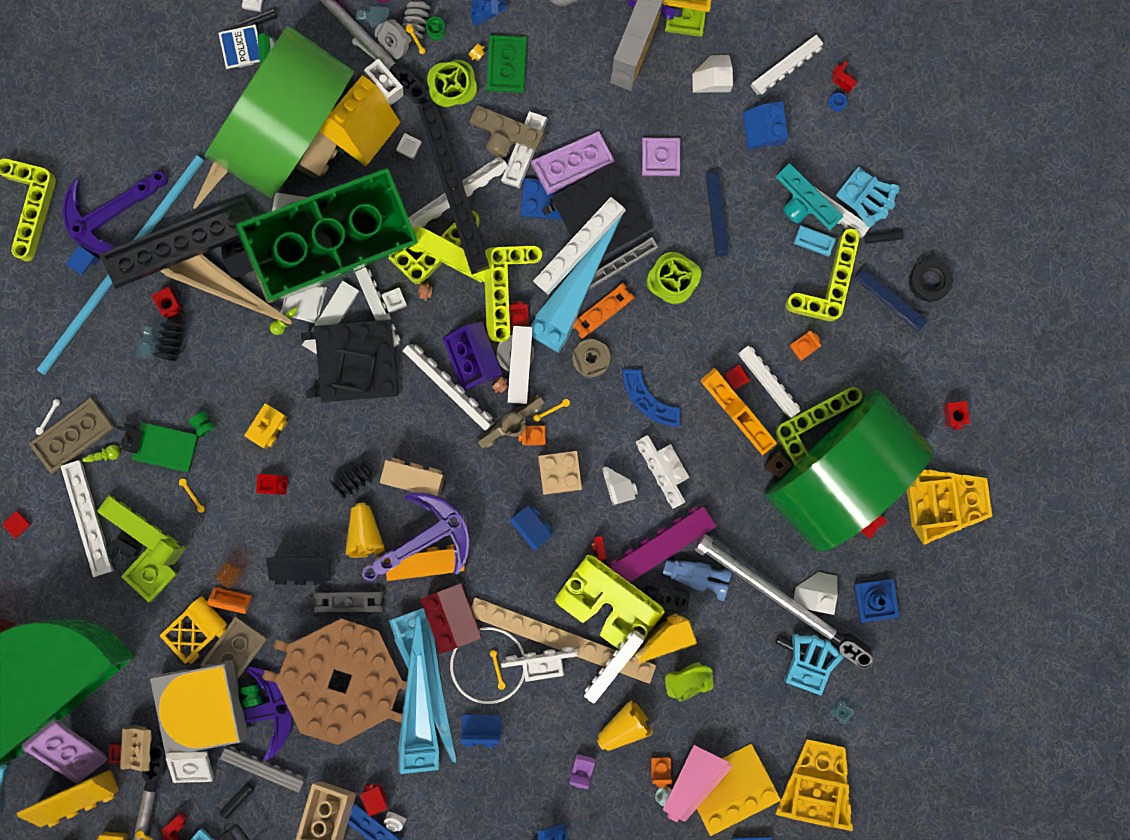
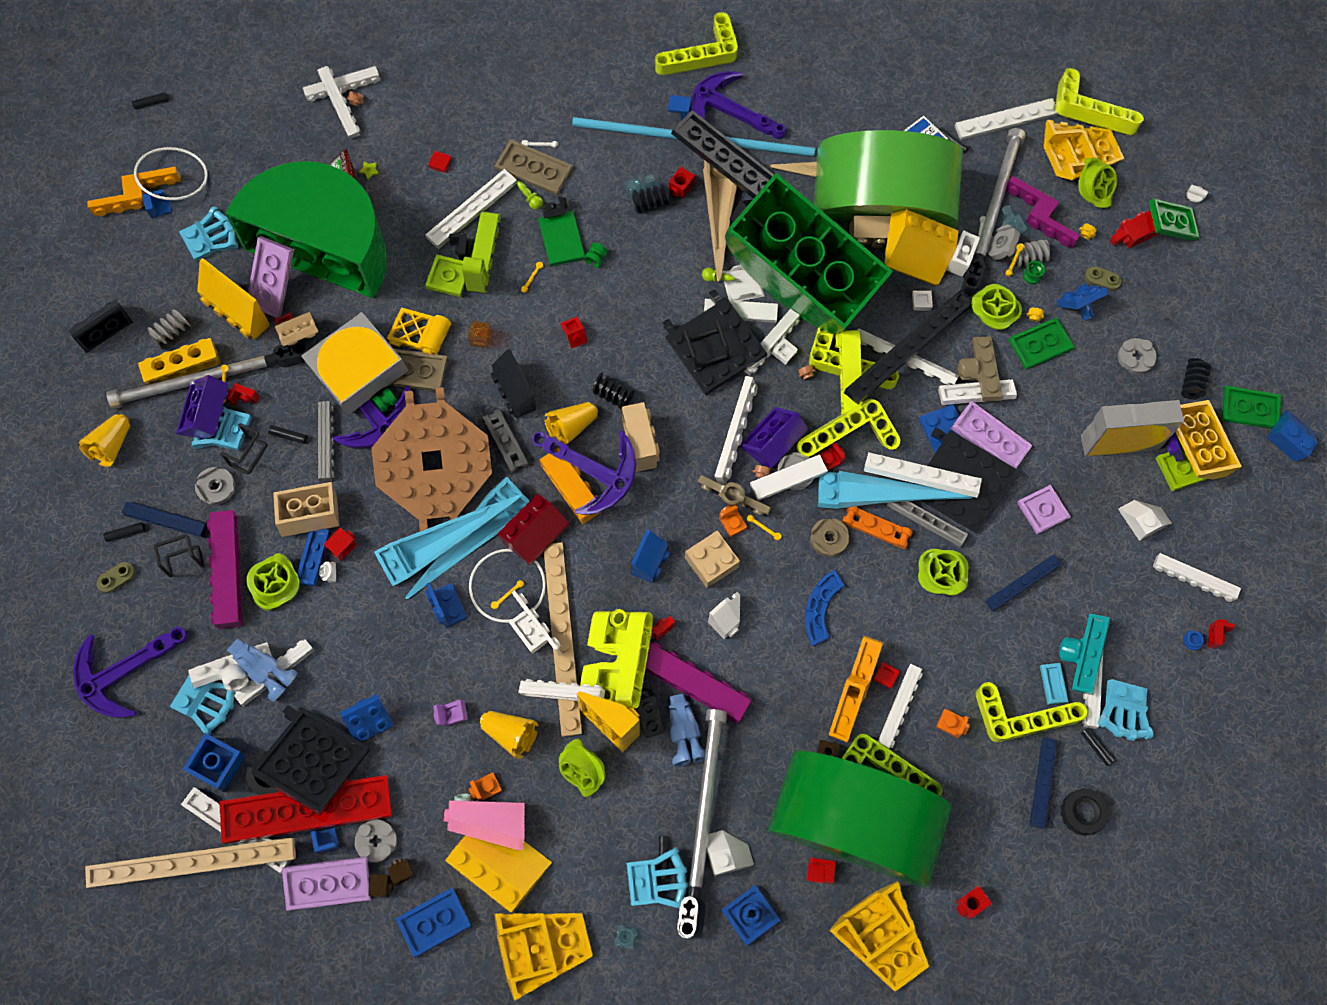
camera: 70 degrees right, 15 degrees down
(189, 767) = (300, 380): white tile -> none
(229, 600) = (458, 345): orange tile -> none
(266, 426) = (620, 303): yellow brick -> none
(666, 469) = (768, 651): white bracket -> none
(765, 125) = (1129, 585): blue slope -> none

